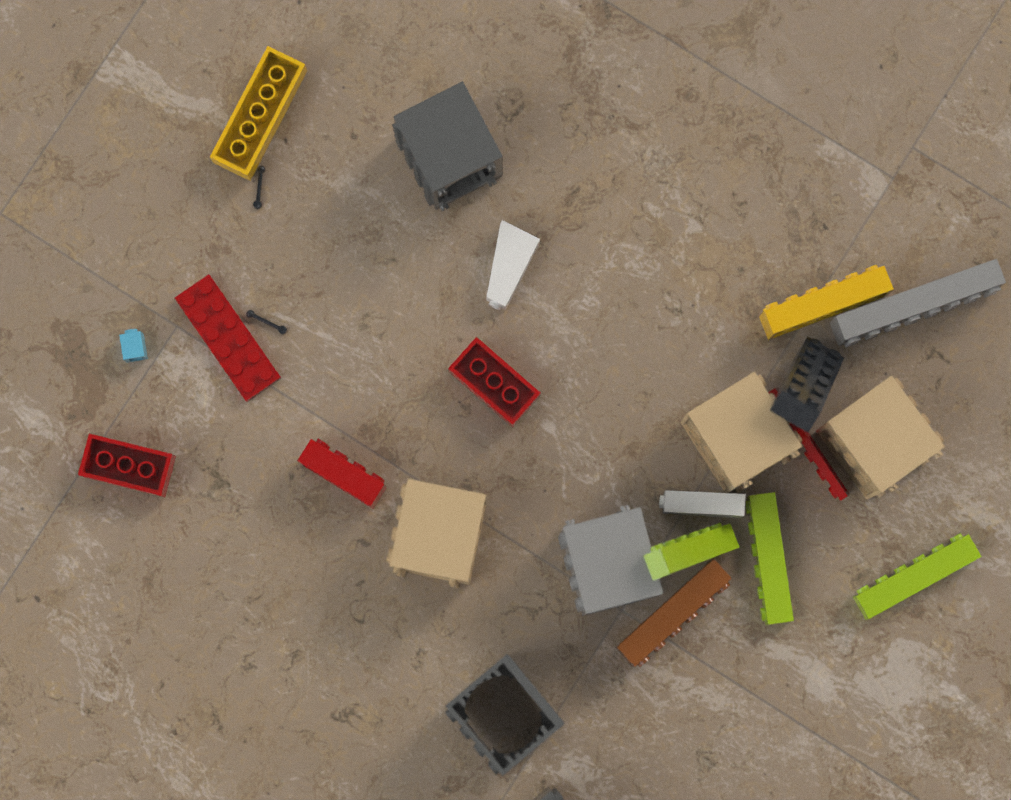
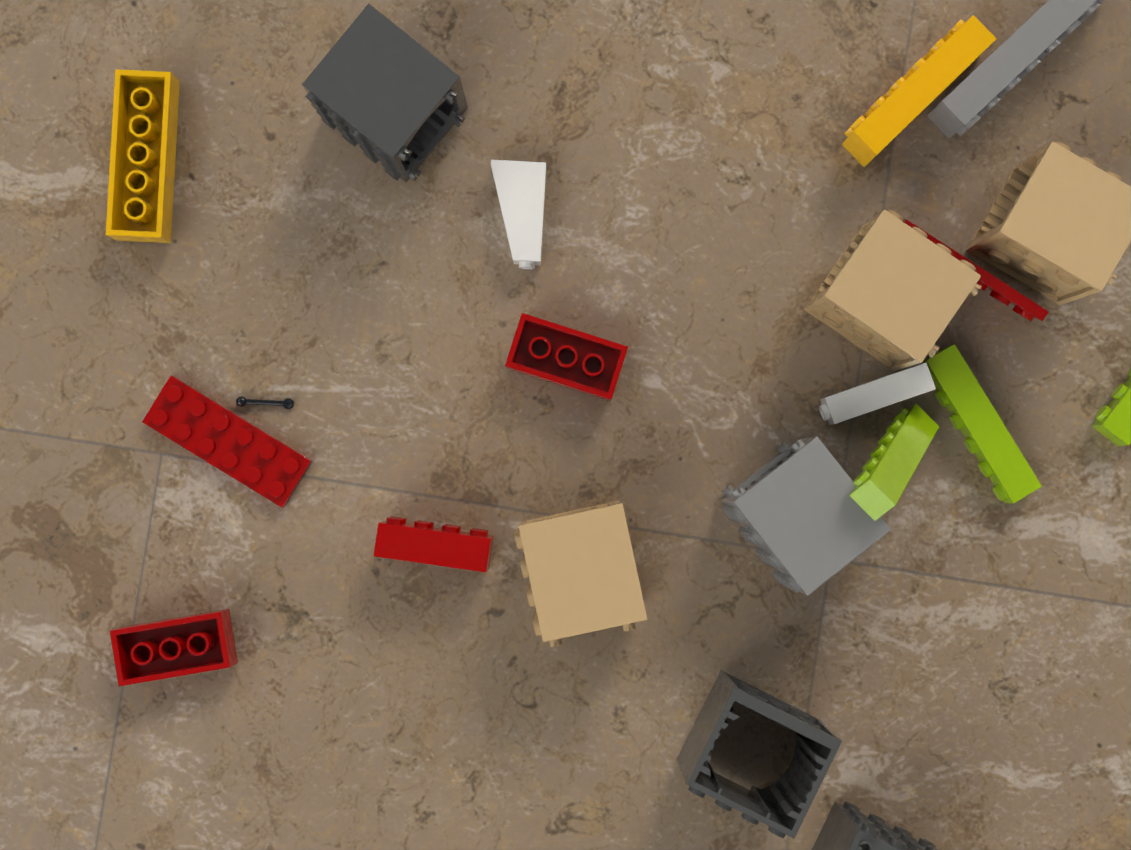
camera: 25 degrees left, 5 degrees up
(133, 346) = (118, 500): medium azure brick -> none
(257, 204) = (191, 267): black hinge -> none
(673, 612) = (891, 557): dark orange brick -> none
(807, 384) = (949, 199): black brick -> none

